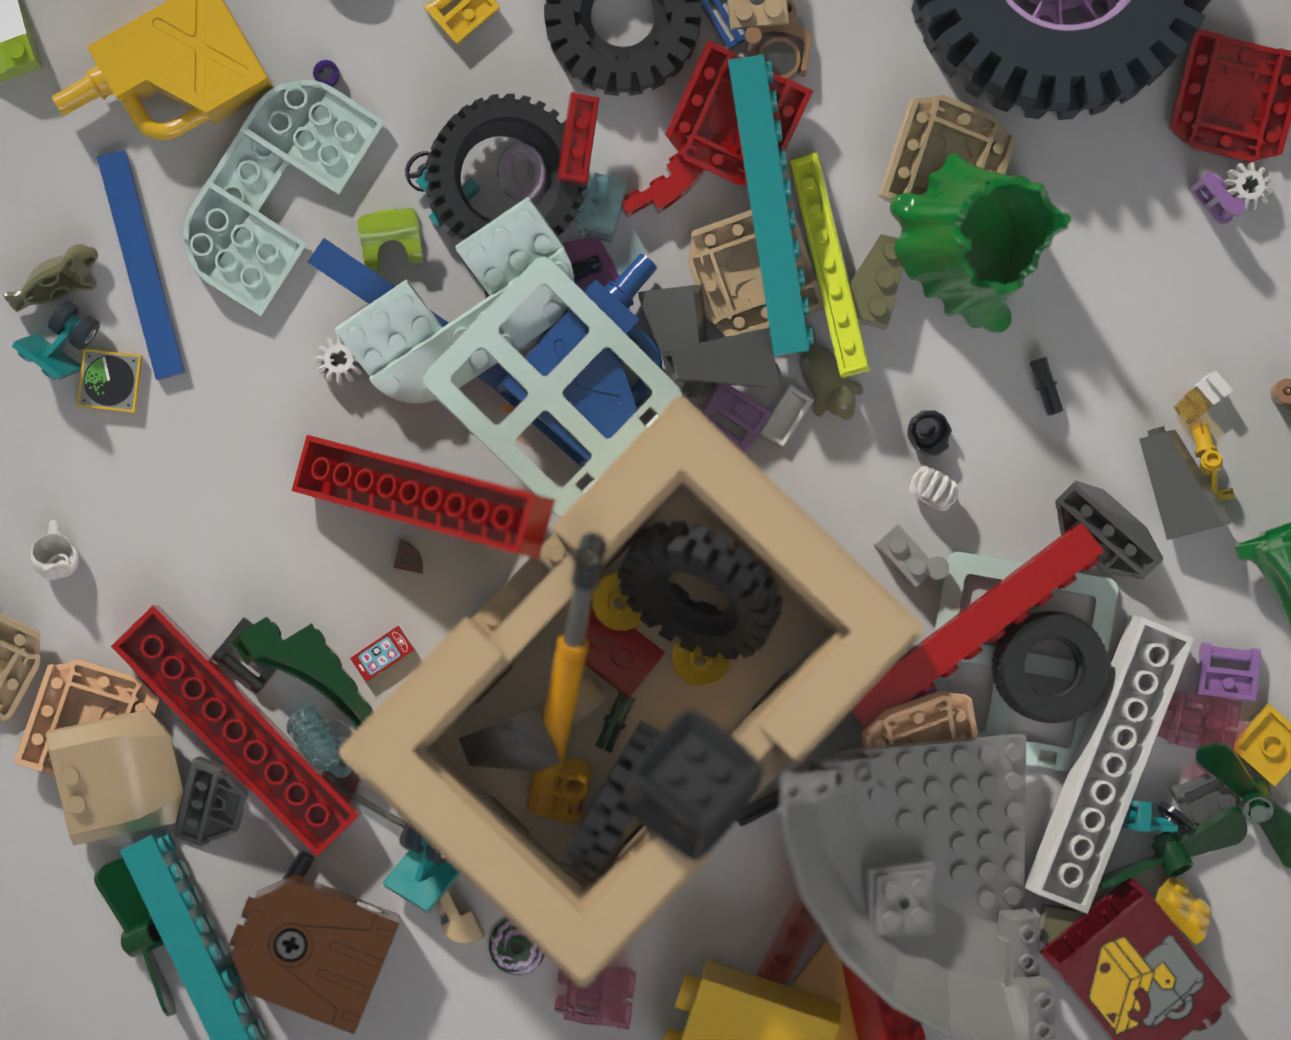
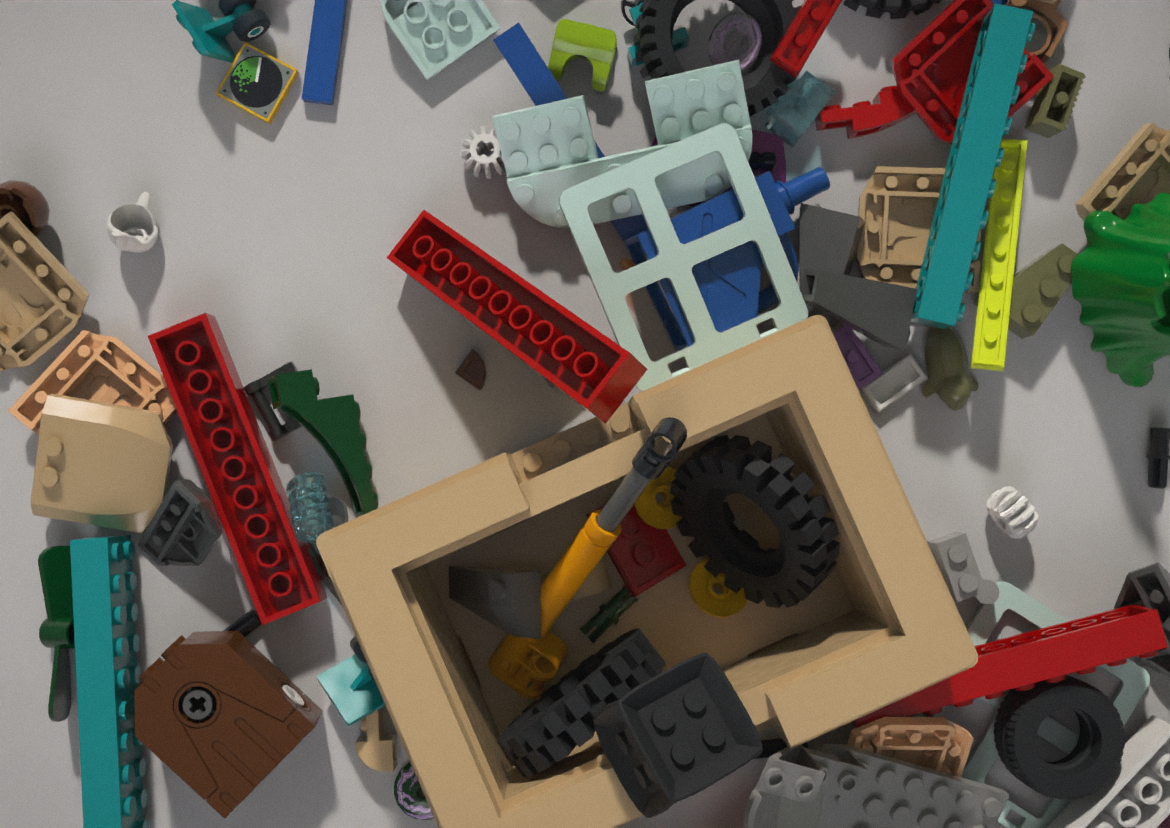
camera: 20 degrees right, 0 degrees up
(382, 653) = (410, 452): tile -> none
(825, 109) = (1055, 102): none -> olive brick
(929, 432) = (1028, 455): black hair -> none

